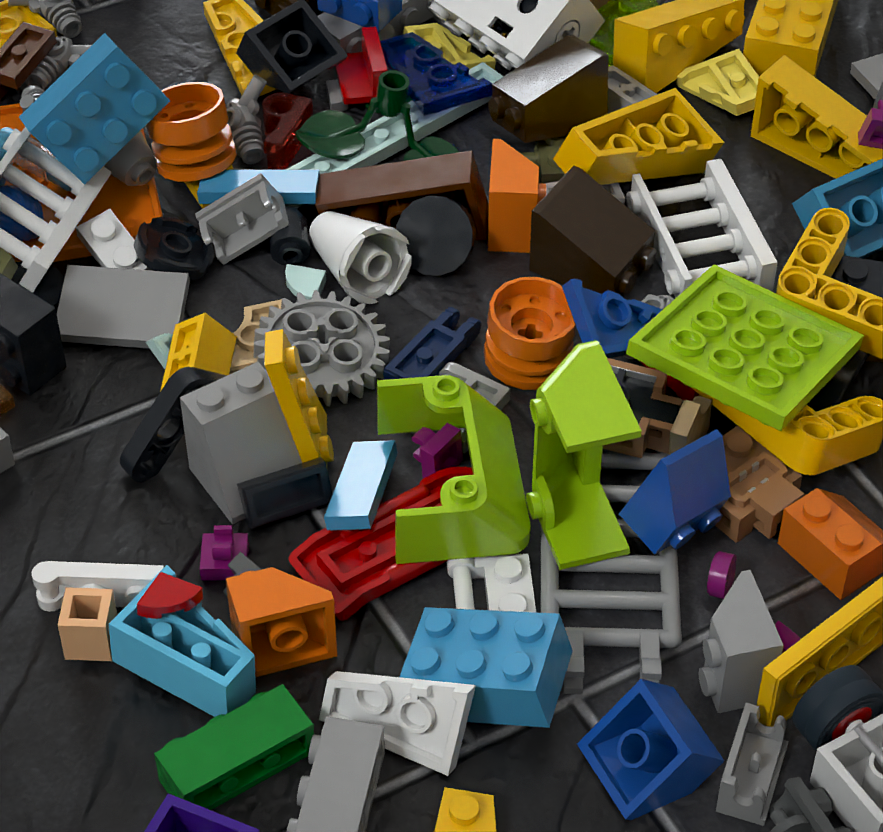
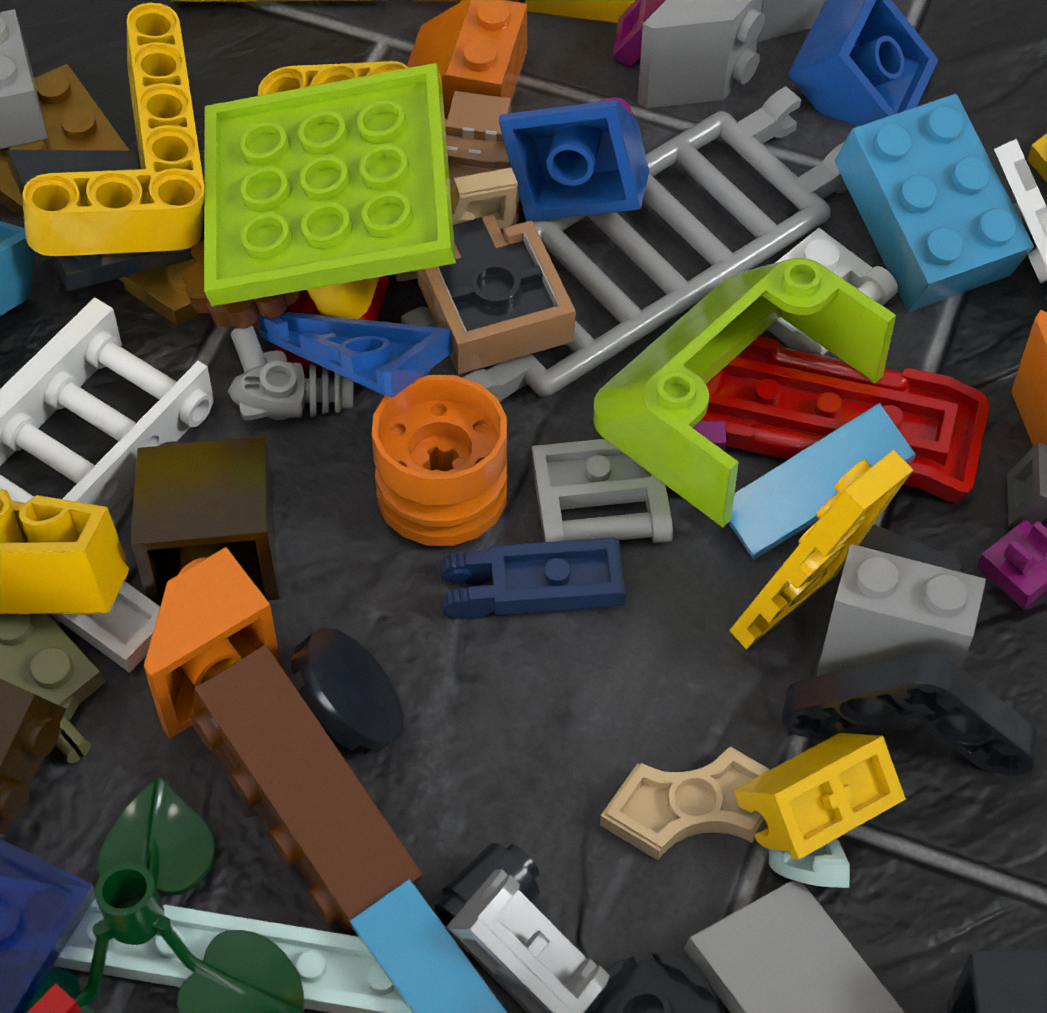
camera: 130 degrees left, 10 degrees up
(304, 280) = (544, 820): light aqua tile -> none
(335, 343) = (650, 693): light grey gear -> none
(361, 254) = (458, 768): white cone -> none
(573, 418) = (639, 181): lime windscreen -> none

